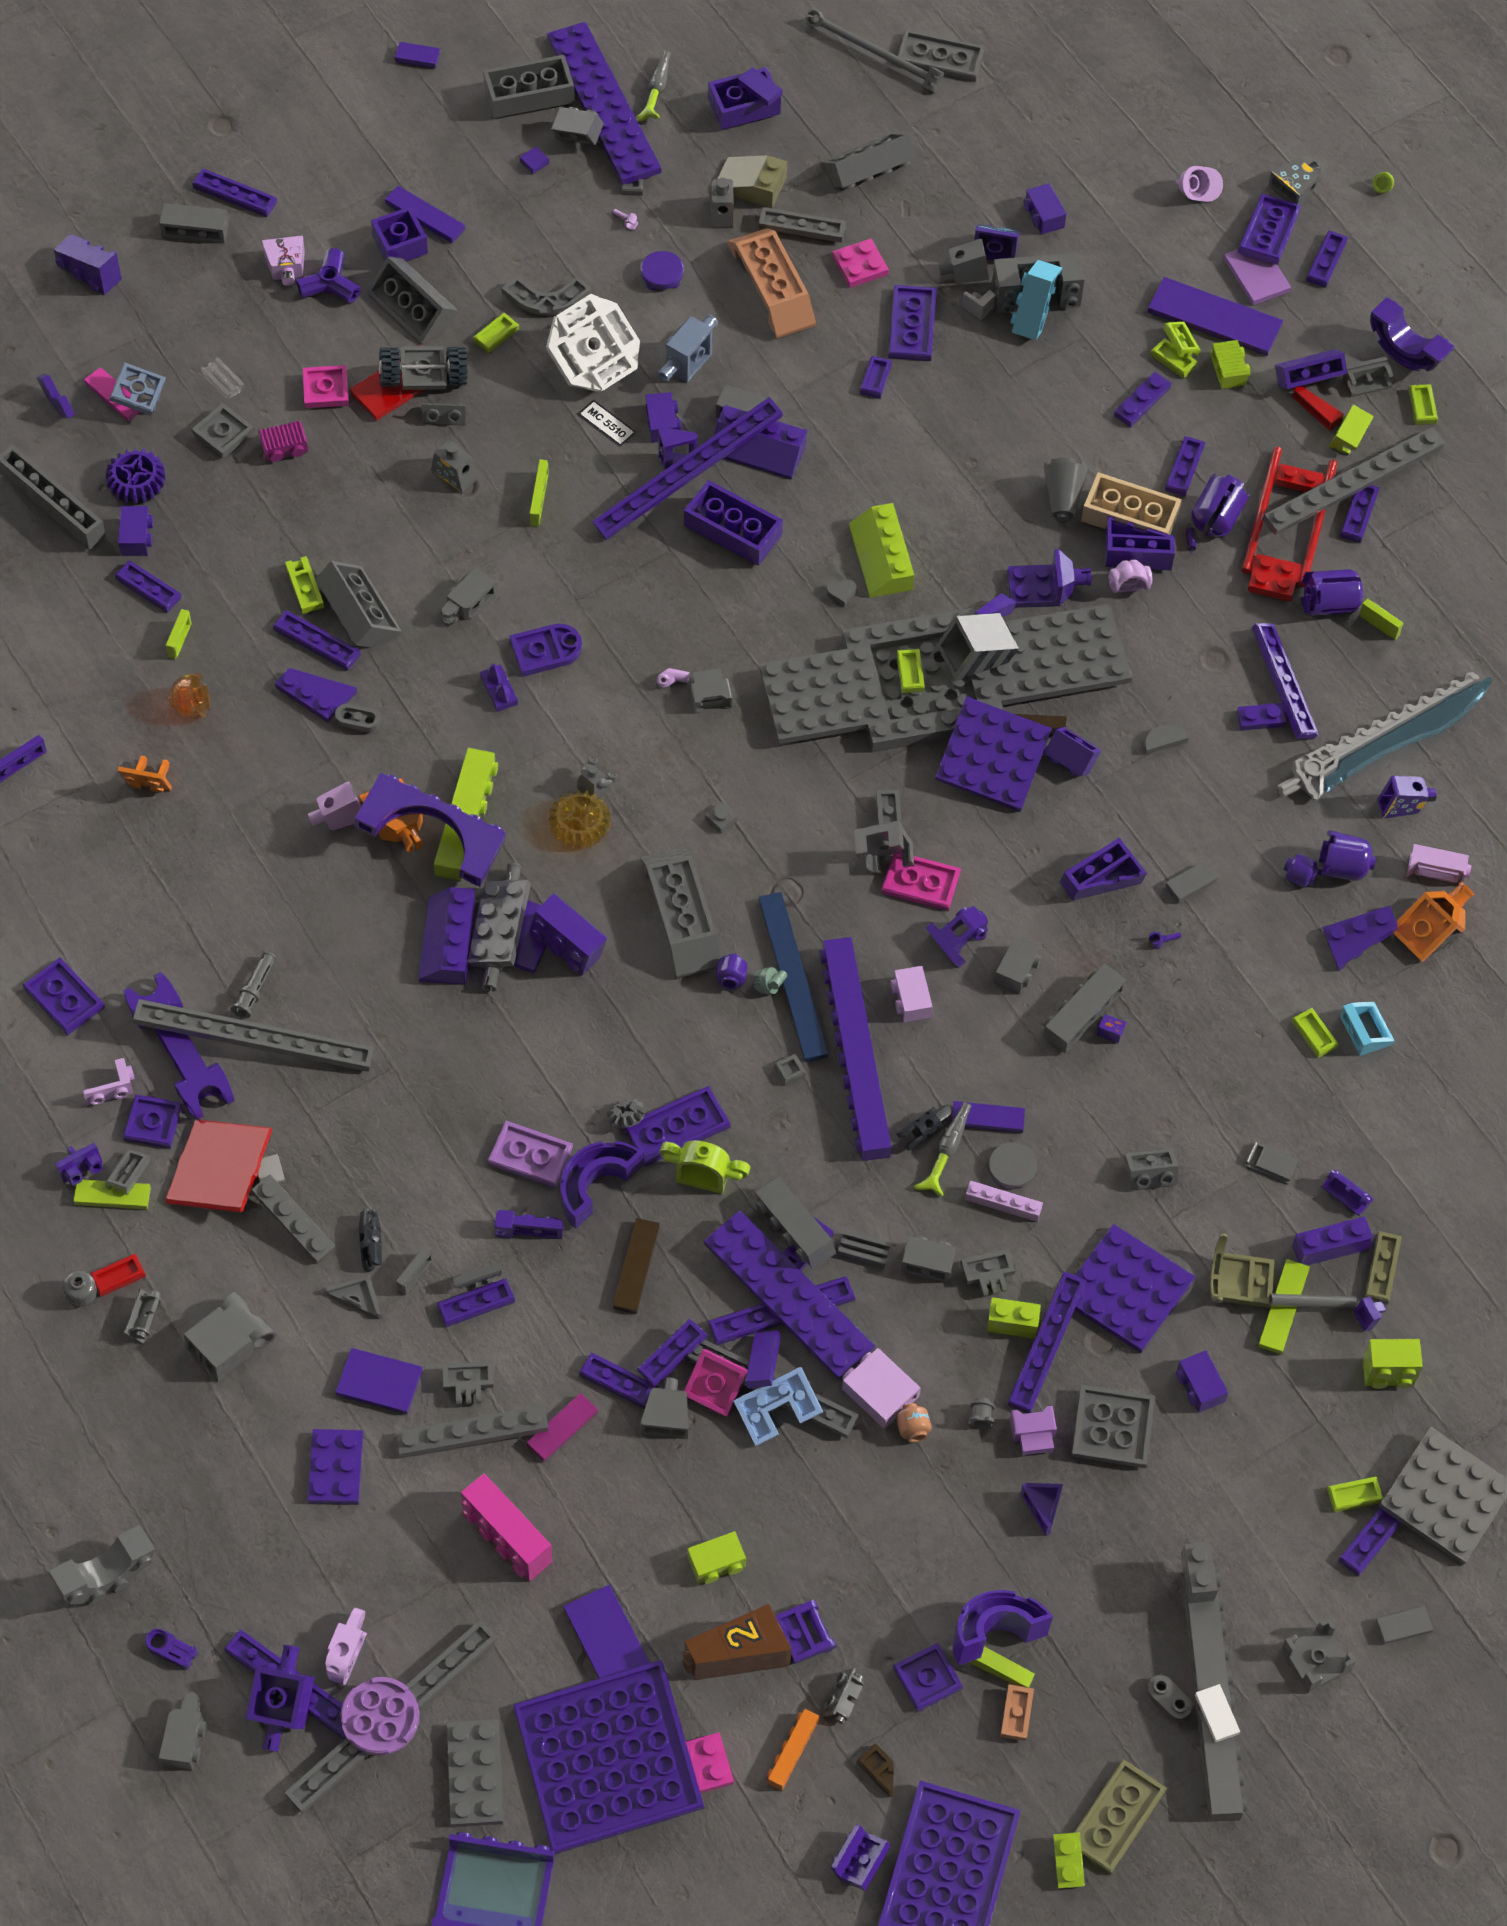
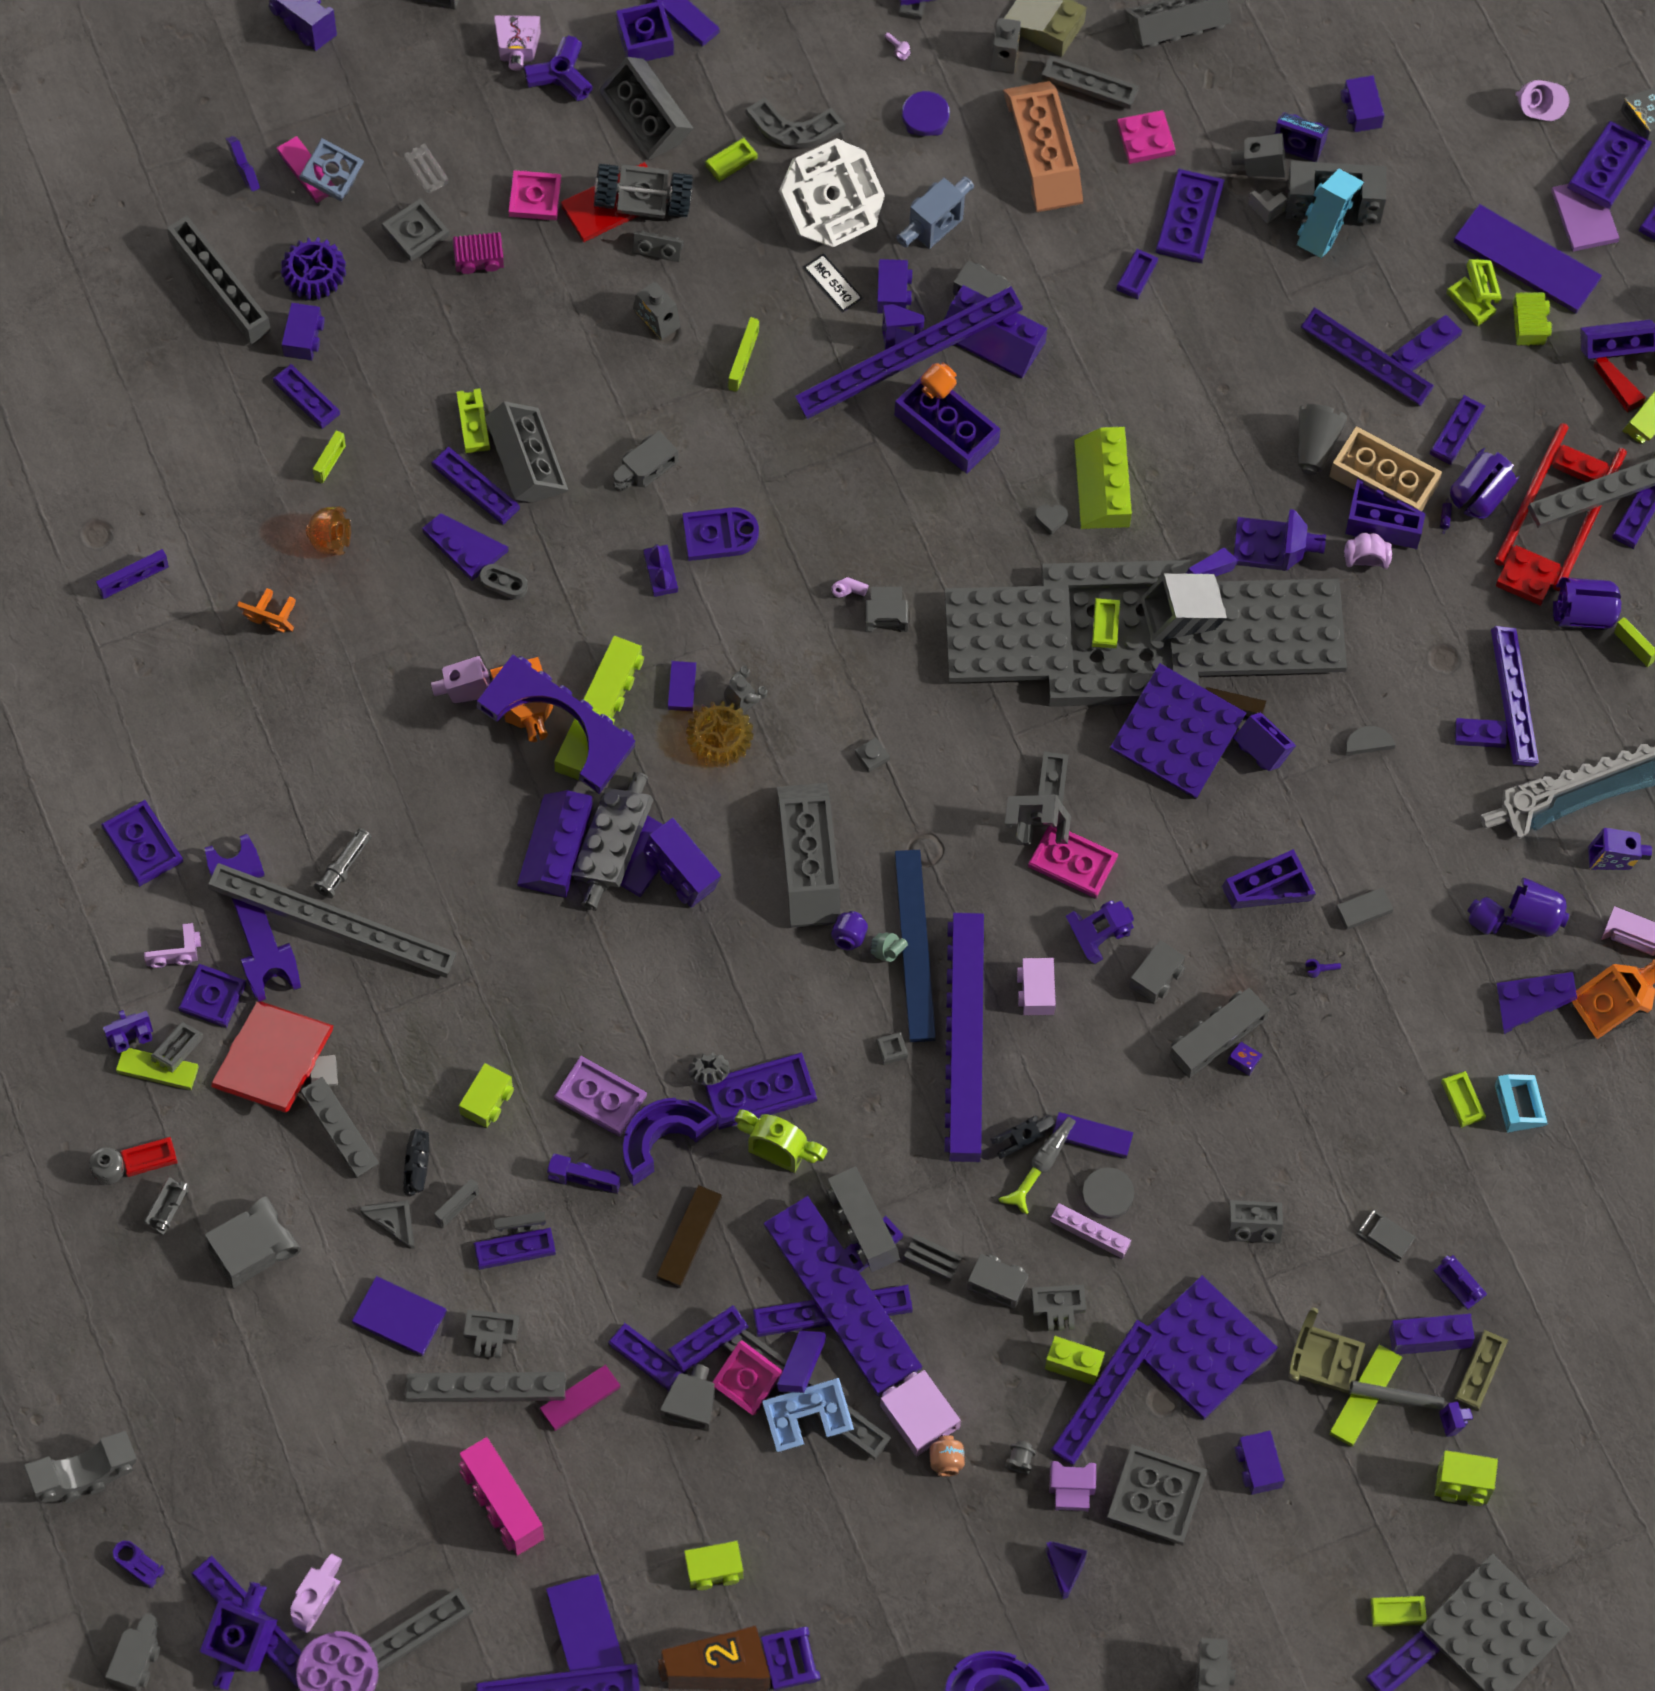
camera: 10 degrees right, 5 degrees up
(335, 1466) = (338, 1400): dark purple plate -> none
(425, 1169) = (486, 1096): none -> lime brick
(537, 784) = (682, 686): none -> dark purple tile
(720, 486) = (938, 381): none -> orange head
(1093, 416) = (1367, 356): none -> dark purple tile

